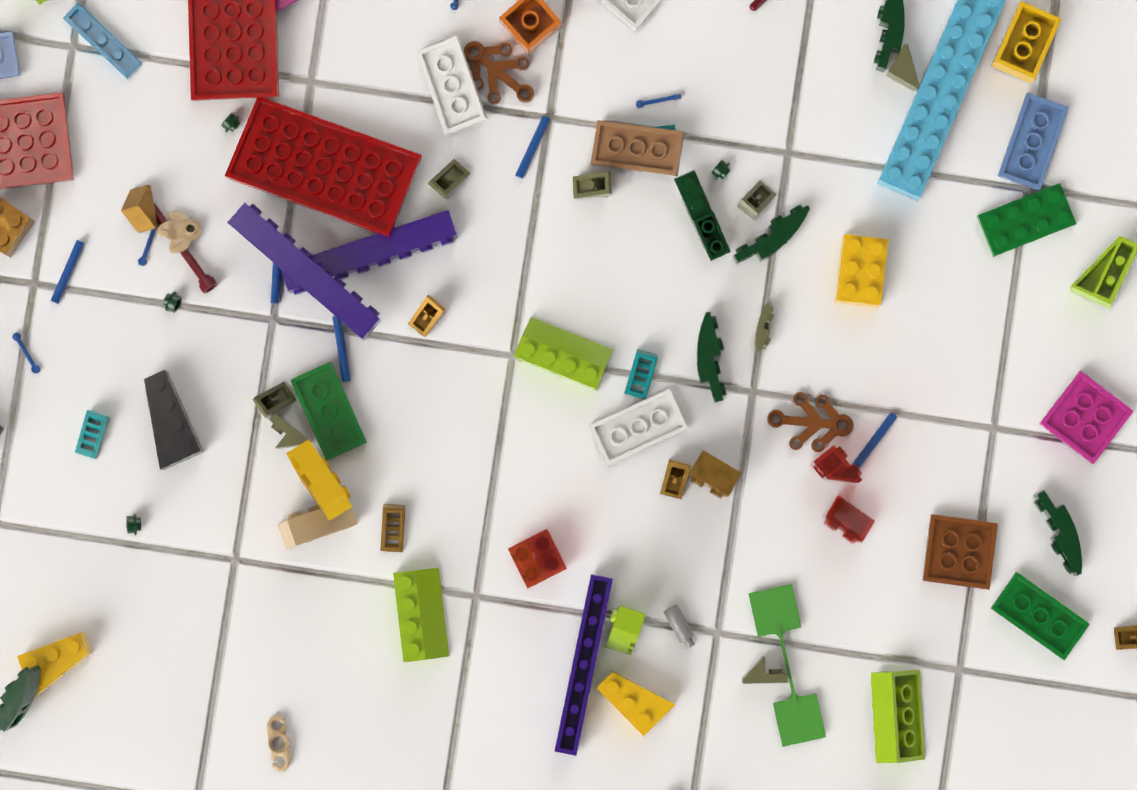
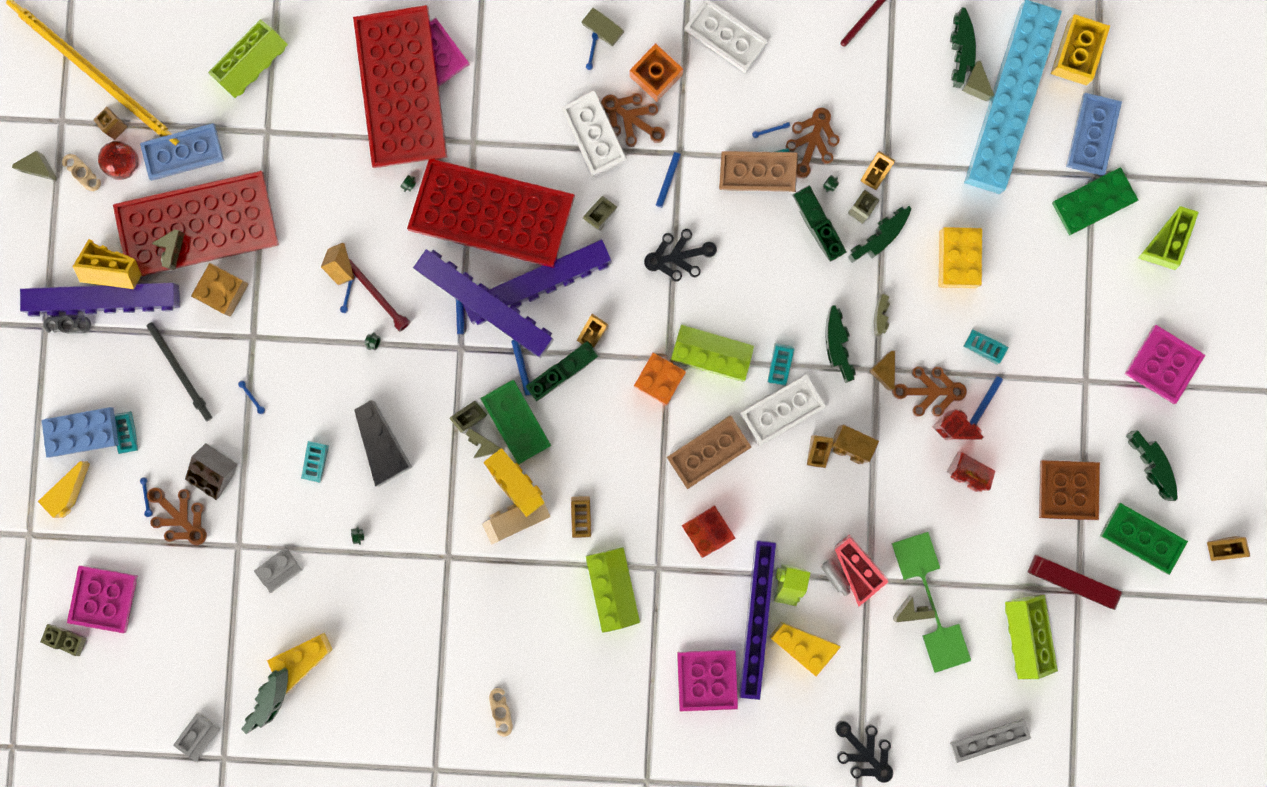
camera: 10 degrees left, 0 degrees up
(38, 555) = (278, 570): none -> light grey plate
(62, 283) = (280, 324): blue bar -> none
(102, 40) = (292, 124): dark azure tile -> none
(176, 231) = (370, 280): tan plate -> none
(388, 358) = (562, 371): none -> dark green slope
(499, 377) = (659, 379): none -> orange brick
(519, 729) = (707, 680): none -> dark pink plate
(534, 237) = (676, 256): none -> black plant
(547, 467) = (709, 452): none -> medium nougat plate
(592, 185) = (723, 207): olive slope -> none
(706, 116) = (814, 139): none -> dark orange plant
(707, 619) = (860, 570): none -> coral wedge
(760, 393) = (885, 371): none -> pearl gold slope
(775, 160) = (877, 170): none -> pearl gold slope
(876, 383) = (988, 341): none -> teal slope
(954, 658) = (1074, 582): none -> dark red beam

